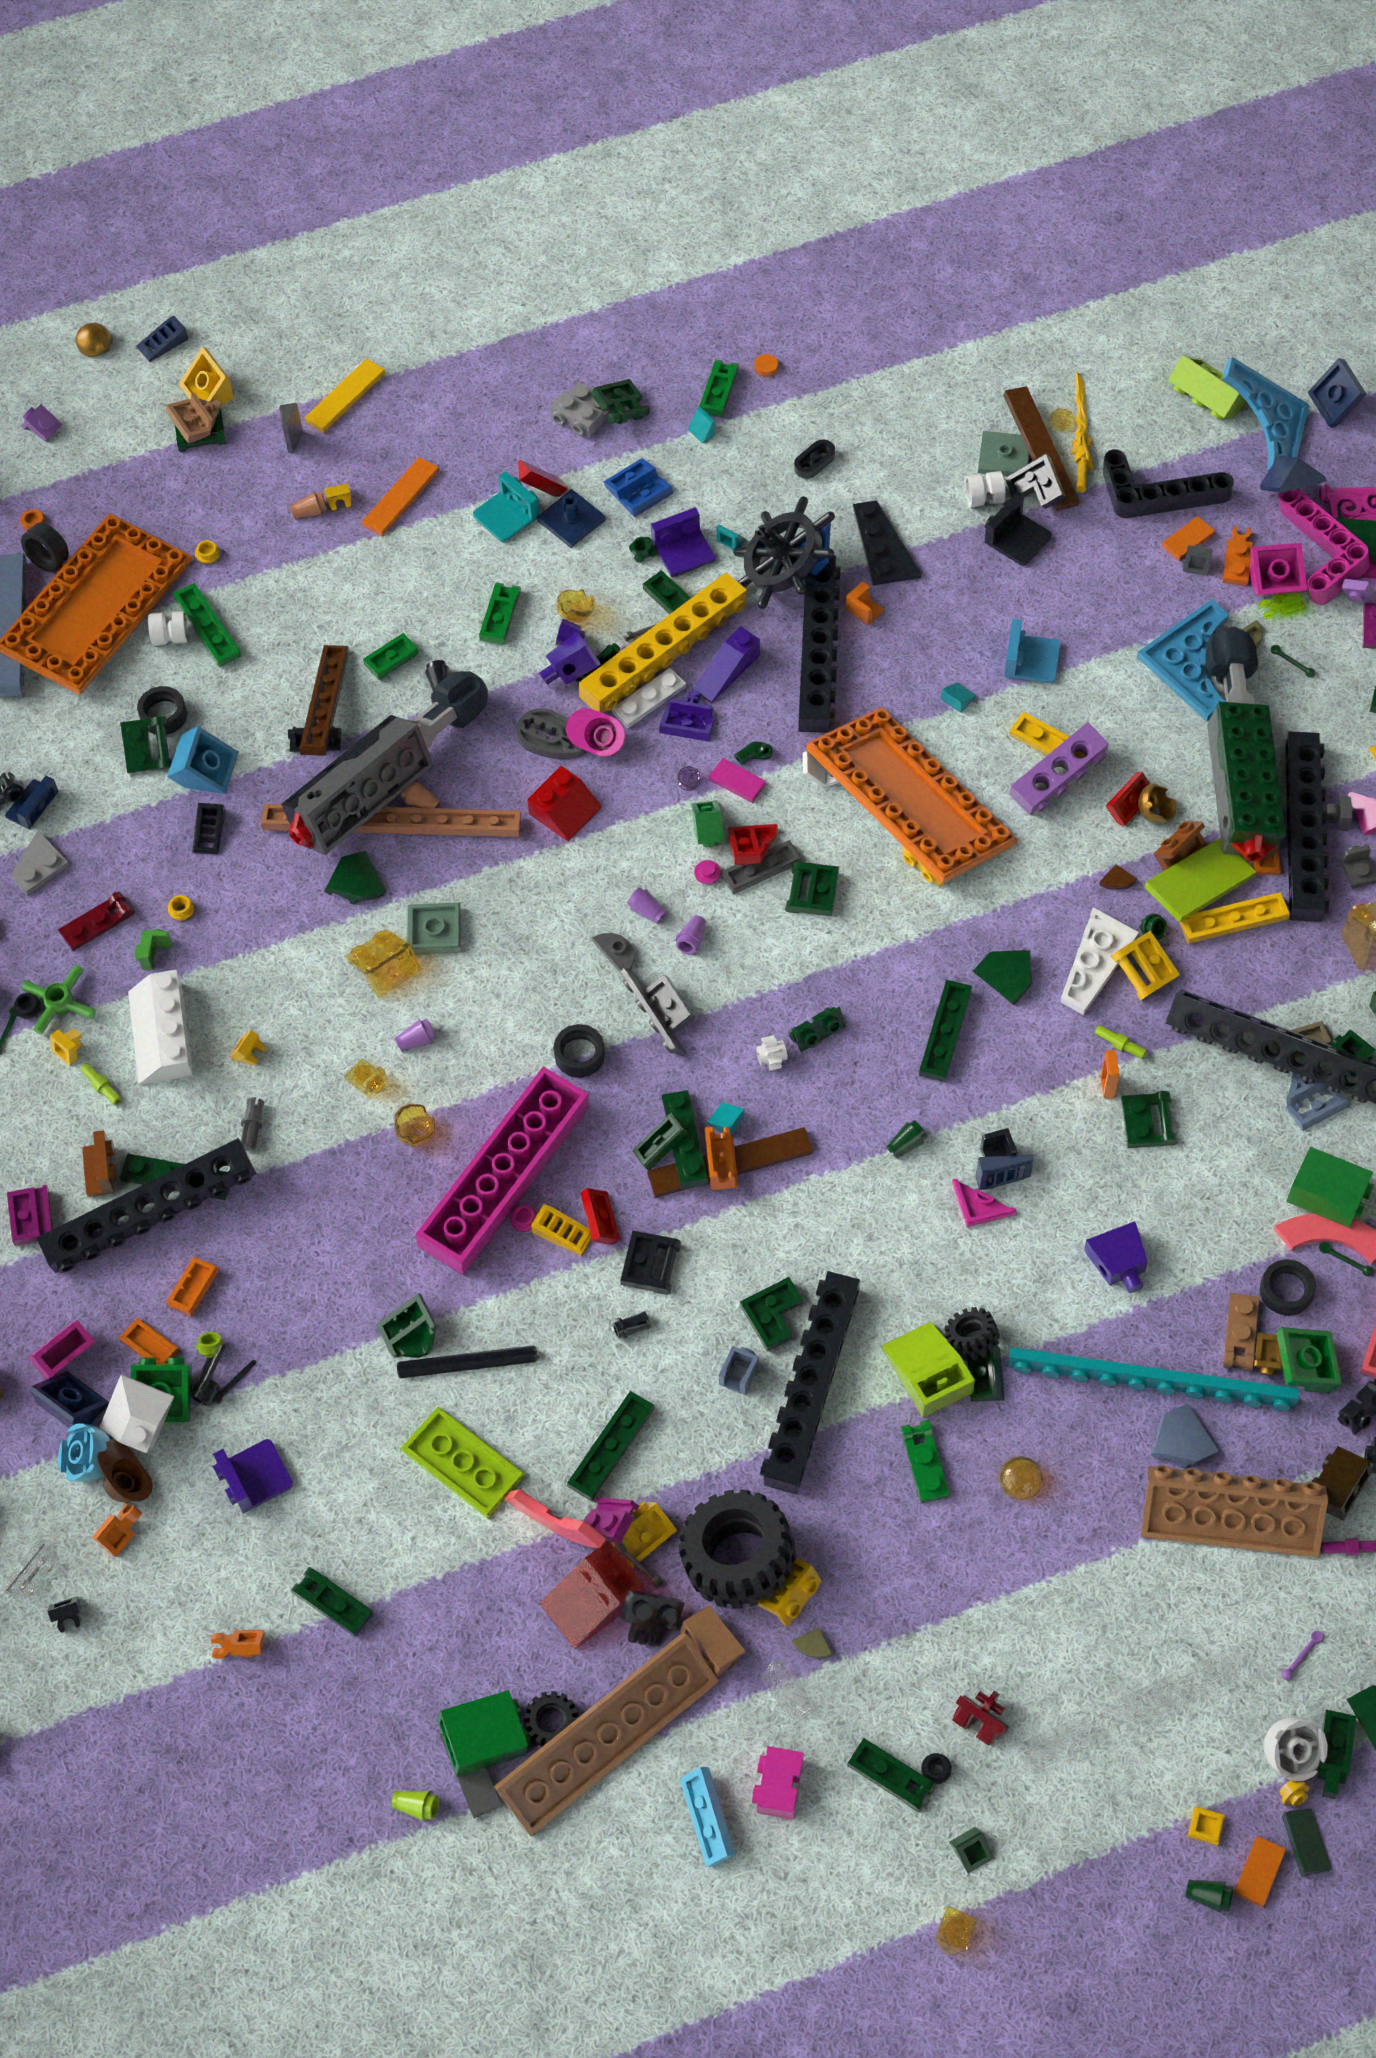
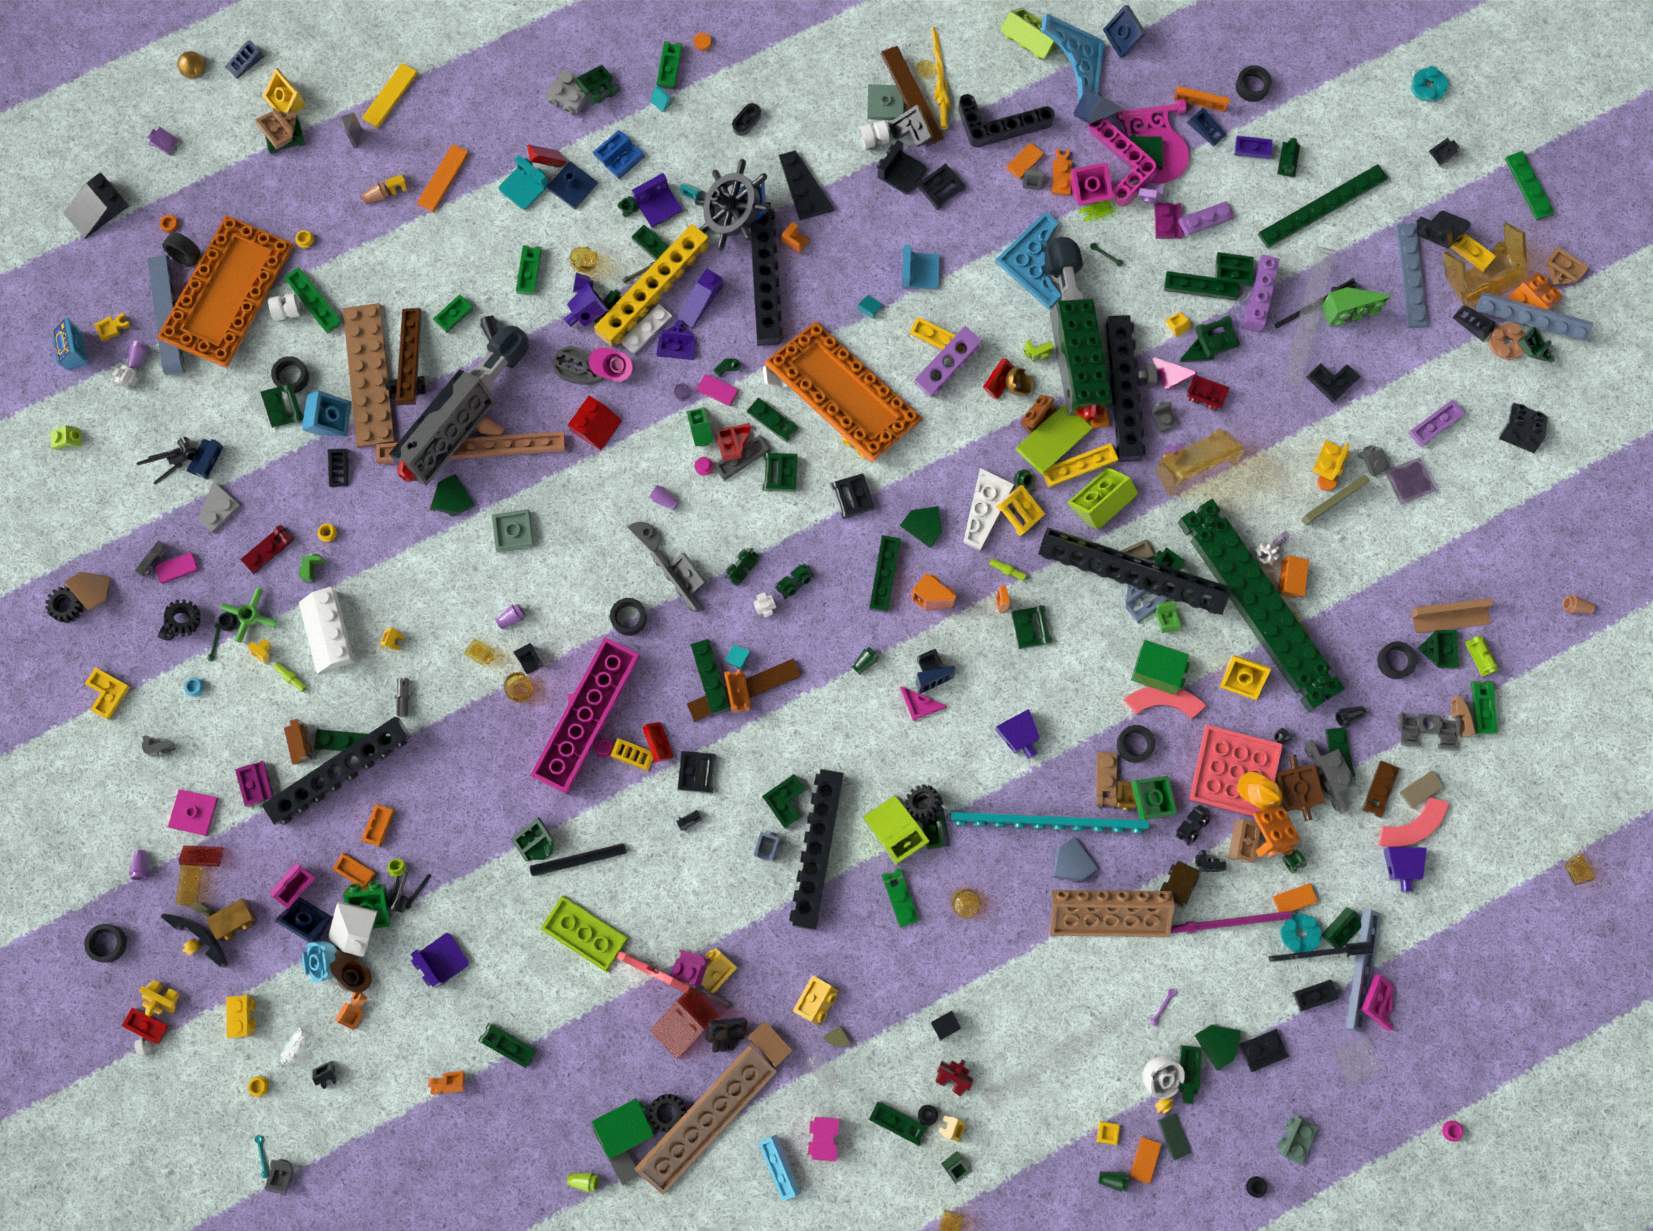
camera: 10 degrees left, 15 degrees up
(266, 721) = (368, 375): none -> medium nougat plate
(384, 961) = (479, 560): clear yellow bracket -> none
(433, 1090) = (528, 658): none -> black panel
(610, 1446) = (684, 911): dark green plate -> none
(664, 1138) = (694, 684): dark green tile -> none
(691, 936) = (698, 517): medium lavender cone -> none
(743, 1581) = (757, 967): black tyre -> none
(752, 994) = (736, 571): none -> dark green hinge
(808, 823) = (772, 419): none -> dark green plate
(919, 926) = (859, 495): none -> black plate
(974, 1791) = (954, 1129): none -> yellow tile
(975, 1642) = (945, 1025): none -> black panel
(1010, 1059) = (932, 594): none -> orange slope
(1067, 553) = (937, 182): none -> black plate
(1117, 879) = (995, 442): reddish brown tile -> none
(1191, 770) = (1041, 352): none -> lime bracket
(1255, 631) = (1076, 235): olive tile -> none
(1265, 961) = (1103, 497): none -> lime slope
(1345, 1122) = (1167, 617): none -> bright green bracket
(1367, 1270) = (1159, 710): dark green hinge -> none

